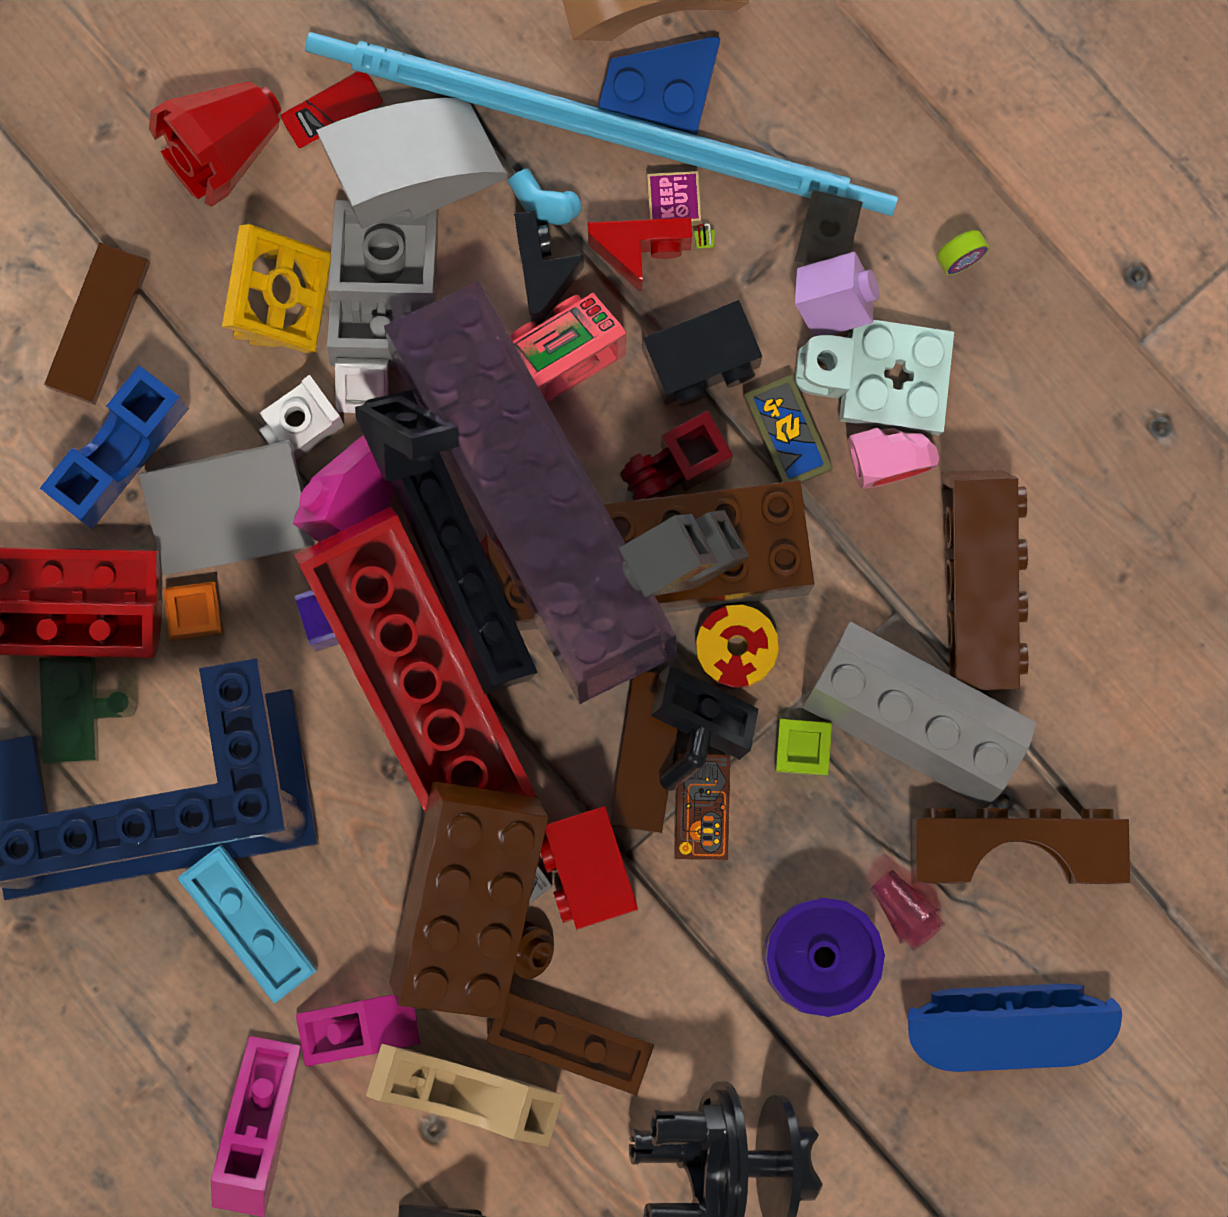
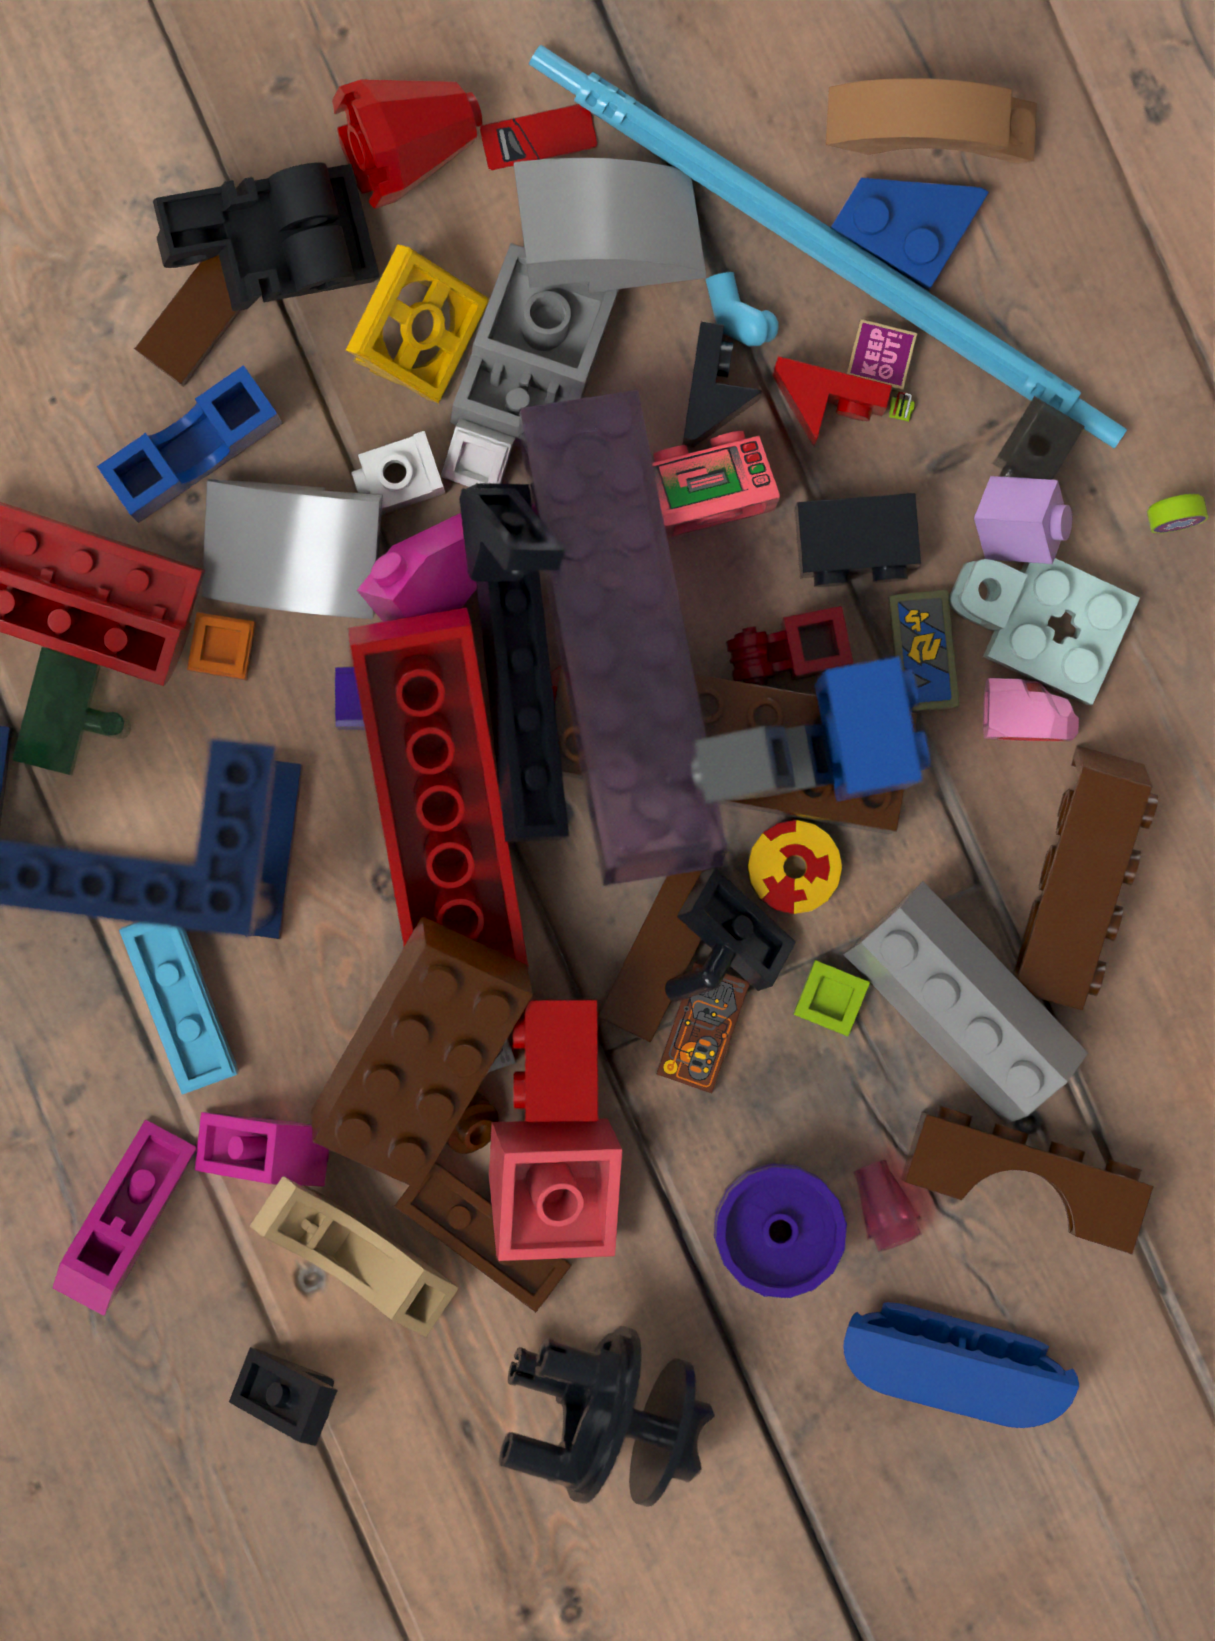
camera: 15 degrees right, 5 degrees up
(132, 253) = (273, 234): none -> black plate
(619, 982) = (554, 1189): none -> coral slope
(766, 495) = (871, 728): none -> blue brick

